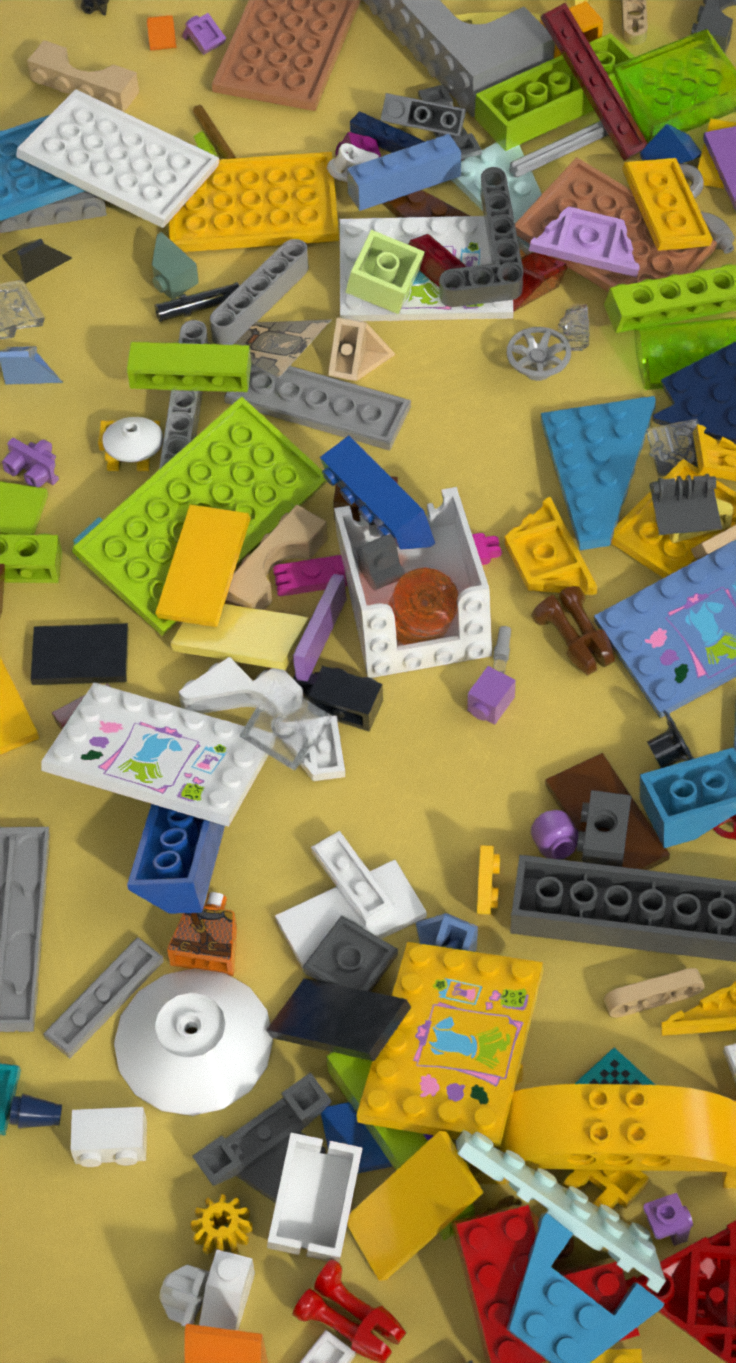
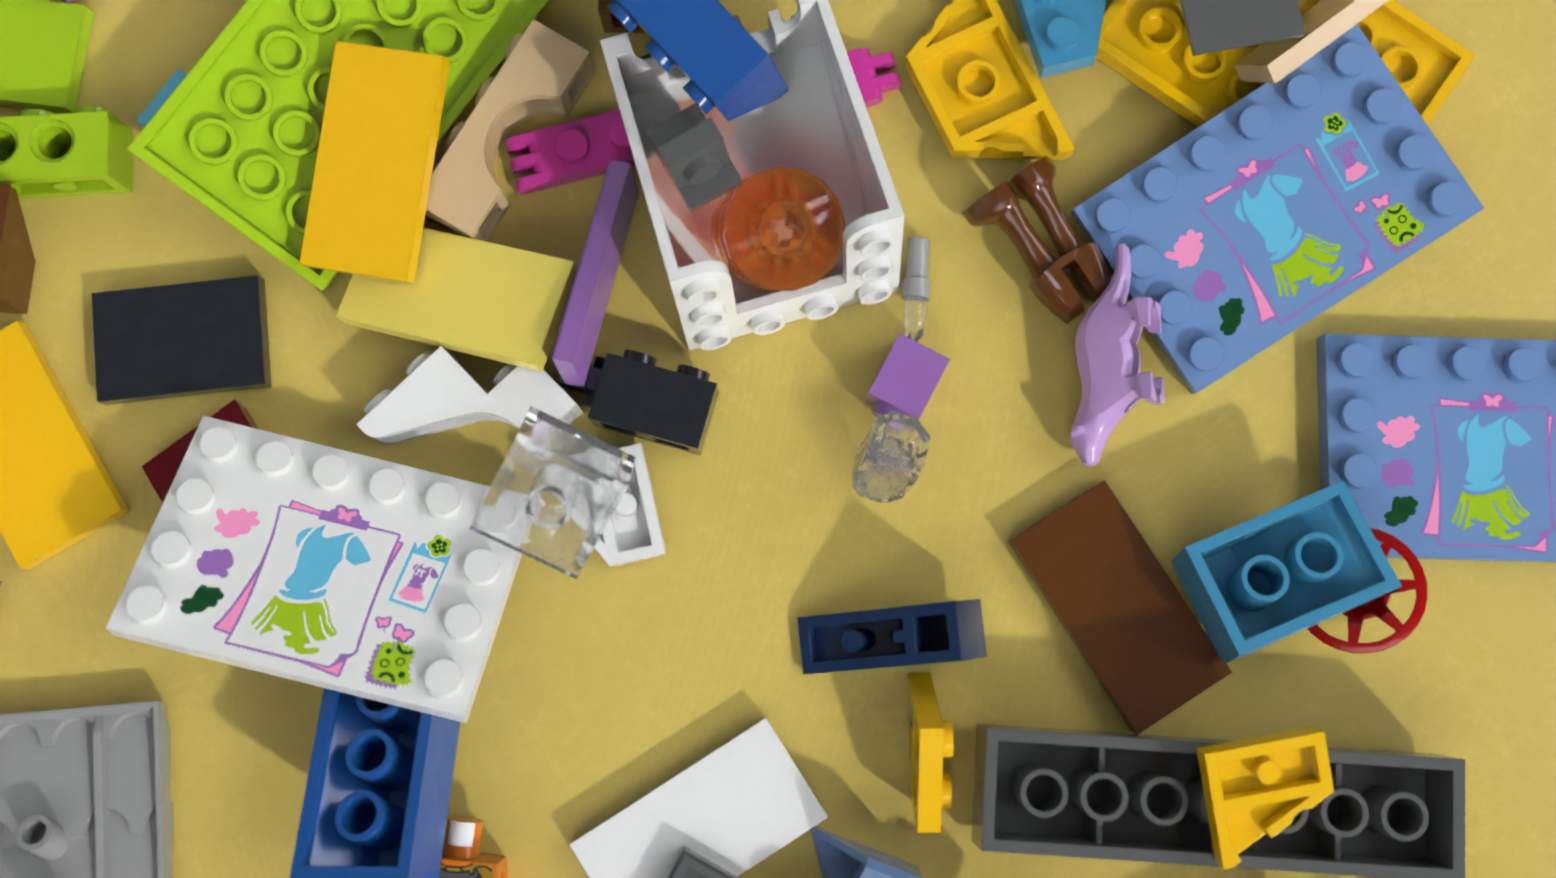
camera: 10 degrees left, 25 degrees up
(352, 878) = (696, 768): white tile -> none
(474, 820) = (892, 637): none -> dark blue slope
(476, 729) = (890, 457): none -> clear rock
(555, 834) = (1036, 652): medium lavender head -> none
(605, 811) = (1145, 679): dark grey brick -> none
(609, 690) = (1112, 362): none -> lavender animal
(670, 745) = (1224, 466): black wheel -> none
(670, 885) = (1261, 786): none -> yellow wing

